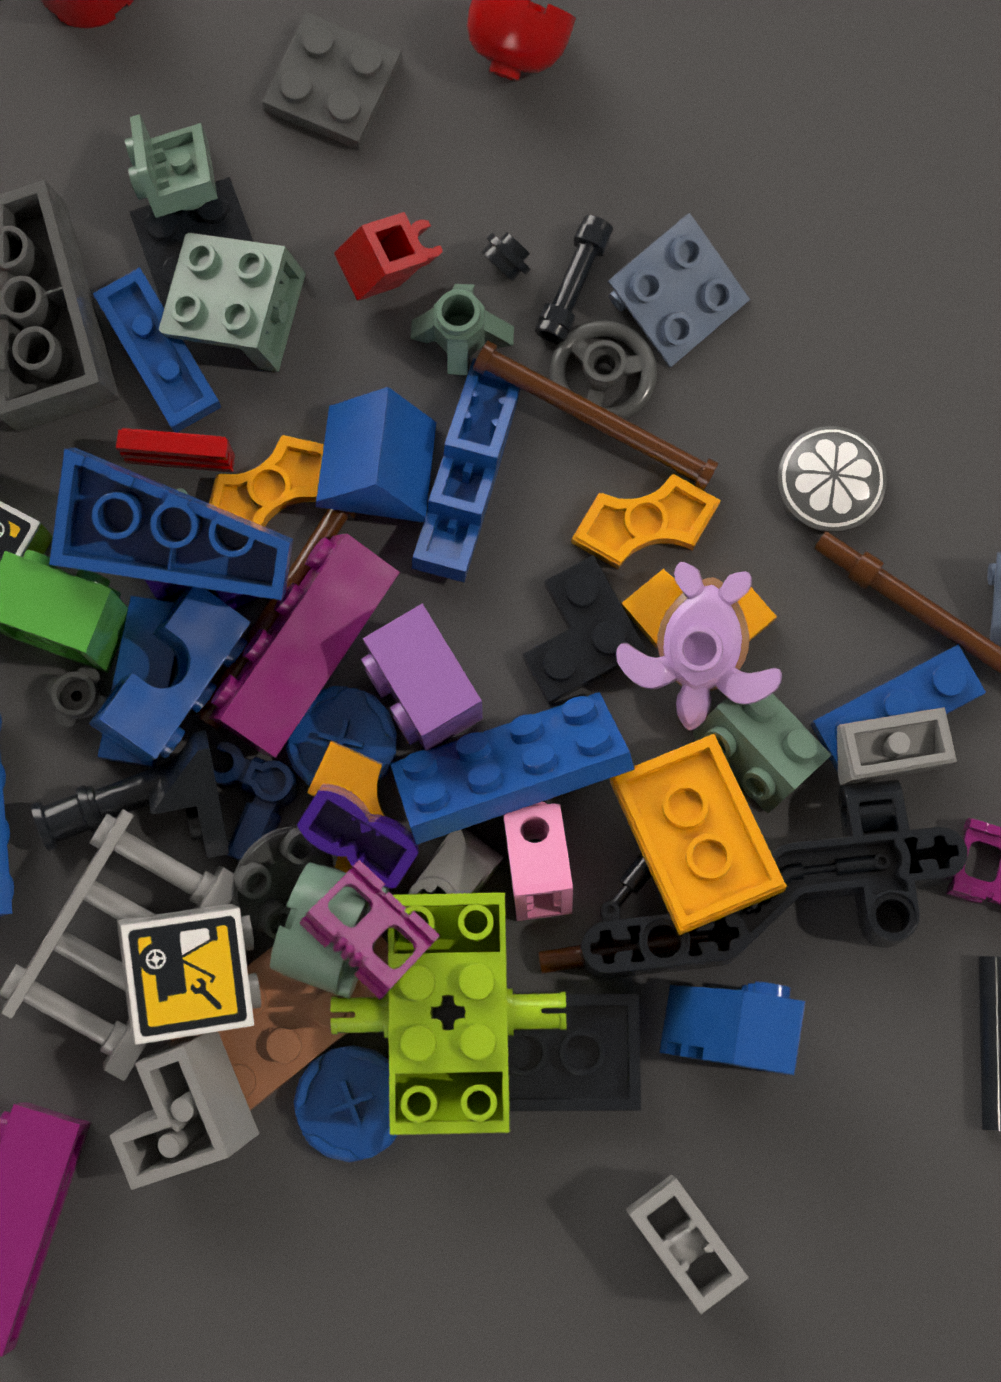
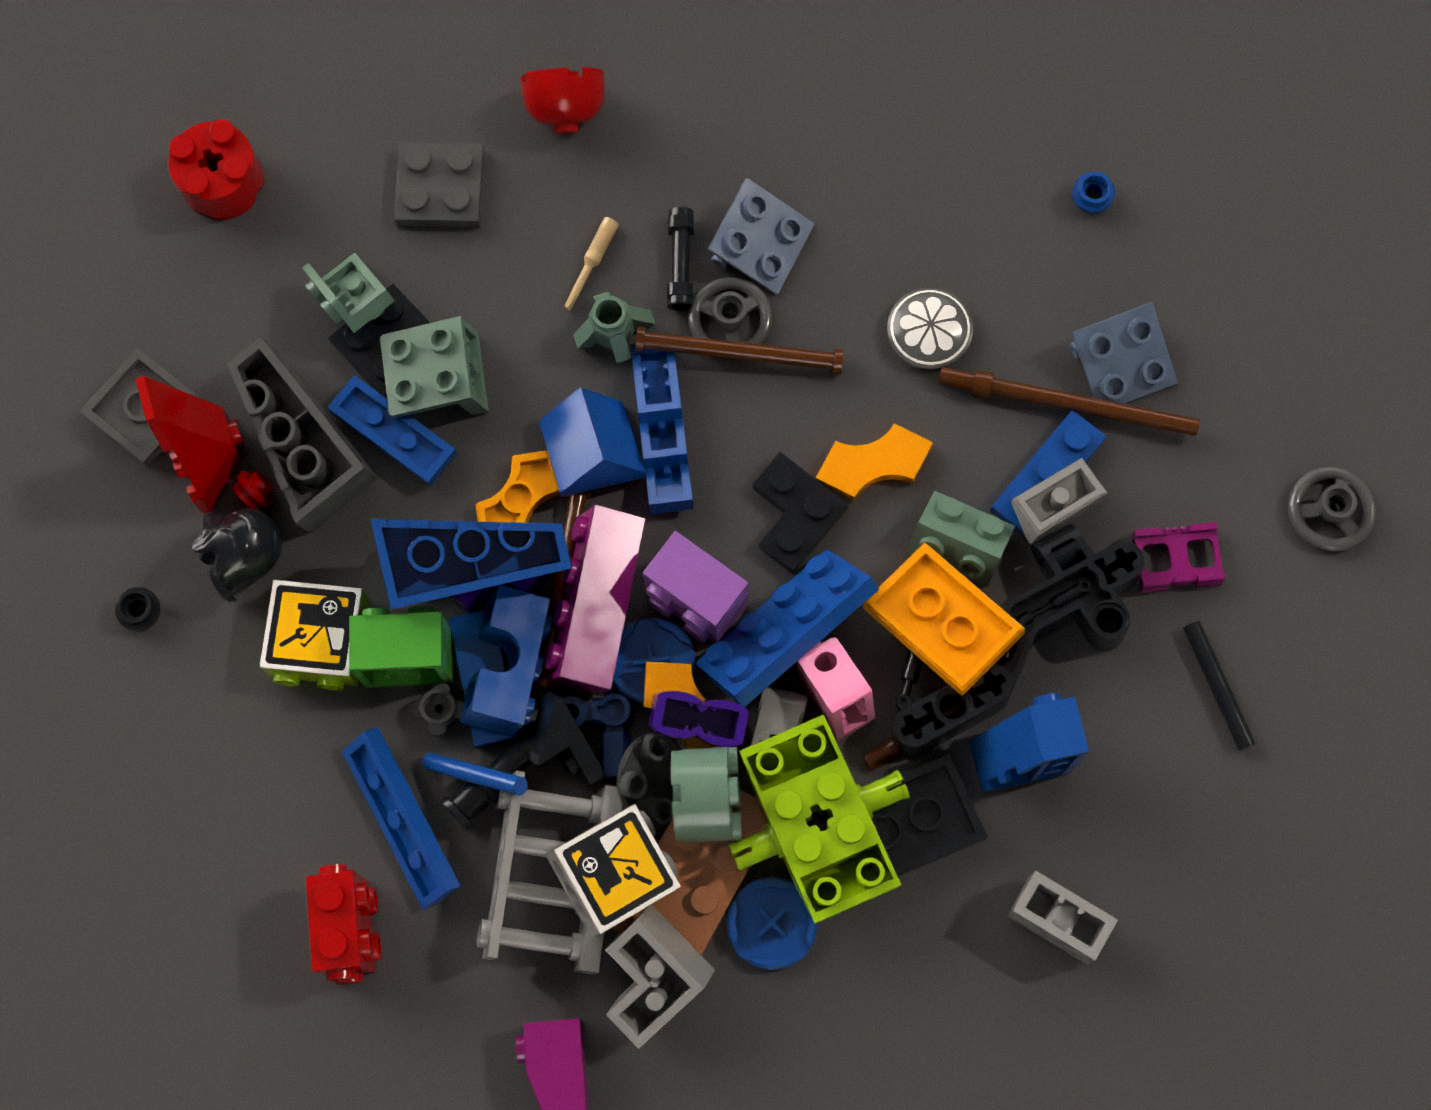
camera: 20 degrees left, 5 degrees down
(79, 792) = (475, 773): none -> blue bar
(175, 450) = (438, 497): red tile -> none
(358, 940) = (735, 788): magenta piece -> none
(384, 254) = (534, 295): red brick -> none
(474, 236) = (593, 256): none -> tan piece
(507, 255) = (624, 260): black plate -> none
(669, 515) = (791, 423): light orange tile -> none
(702, 647) = (889, 484): lavender animal -> none

